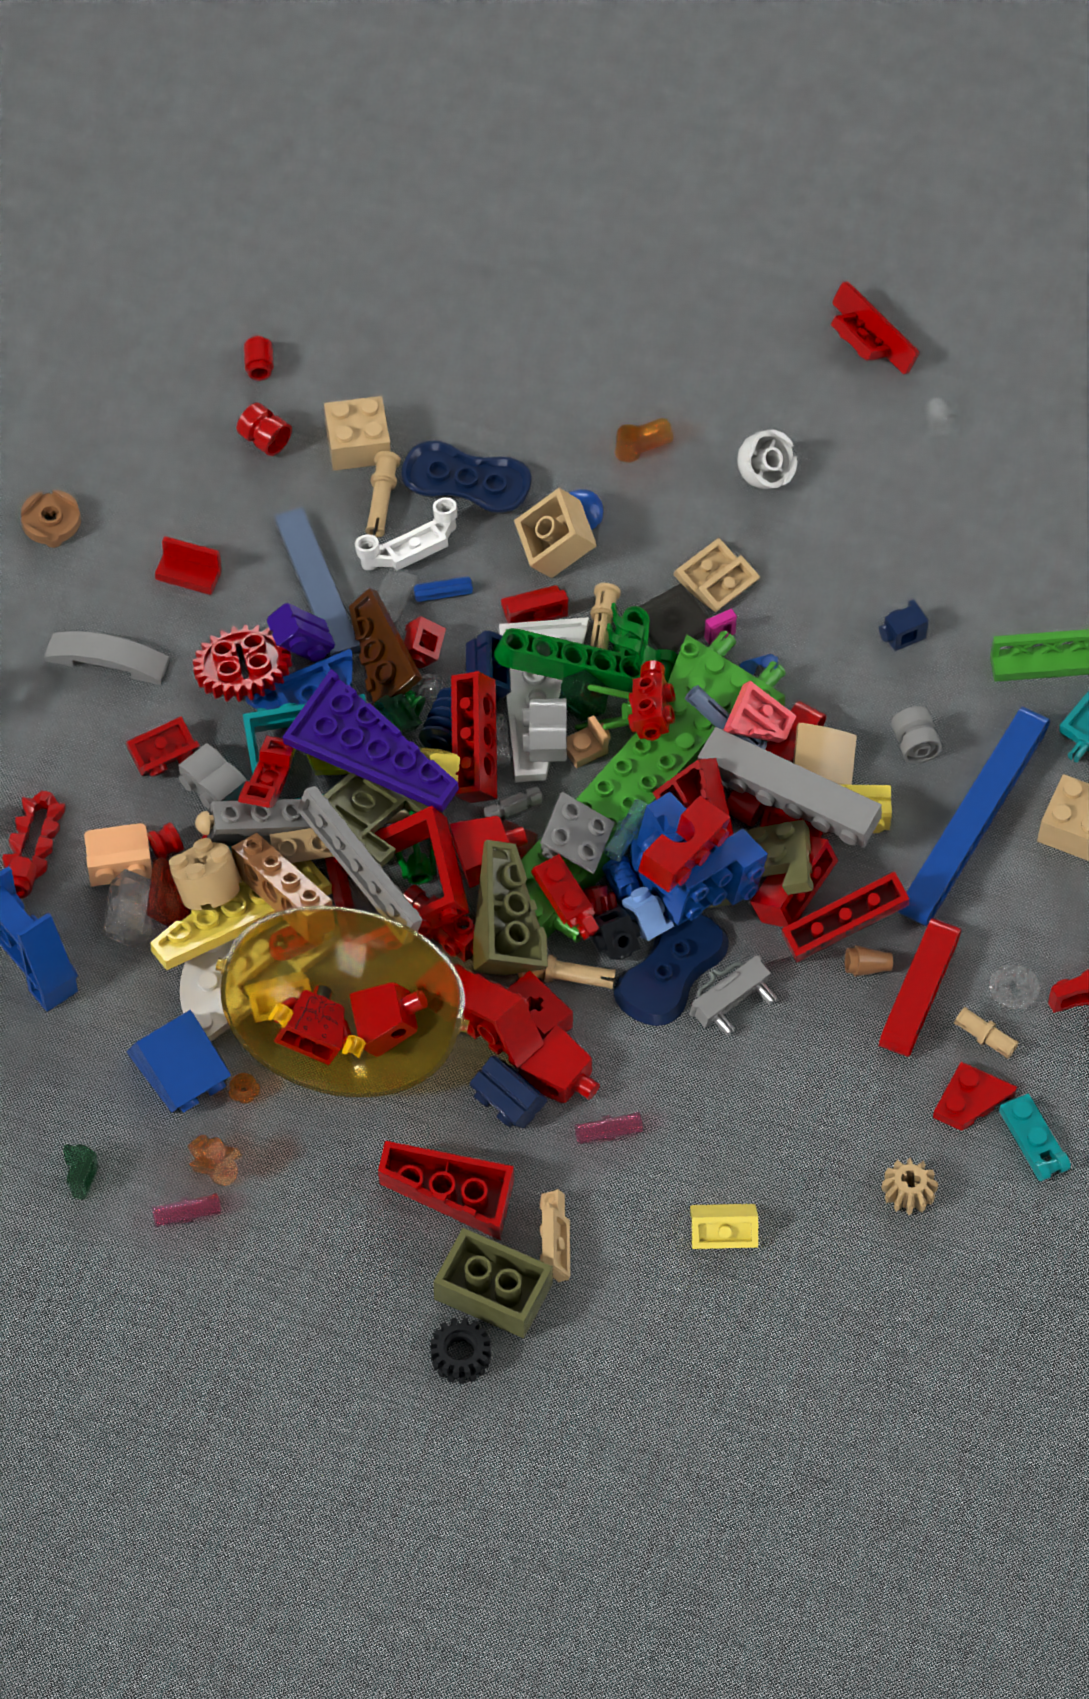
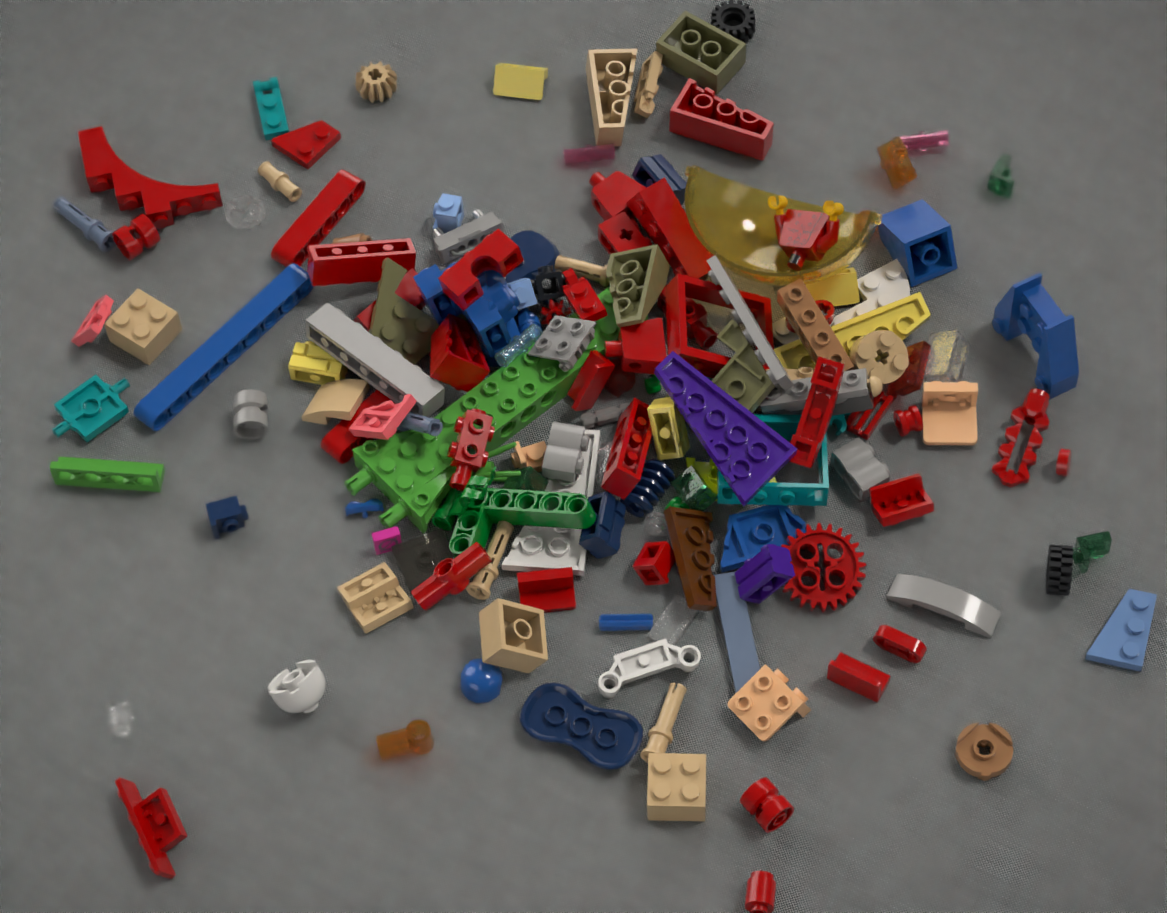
camera: 165 degrees left, 0 degrees up
(148, 603) = (900, 643): none -> red beam
(273, 522) = (767, 703): none -> light nougat bracket
(386, 1015) = (747, 231): red torso -> none
(531, 813) = (590, 381): none -> red panel
(601, 1216) = (609, 87): none -> tan wedge
(638, 587) = (451, 576): none -> red piece
(762, 1013) = (448, 212): none -> light blue brick

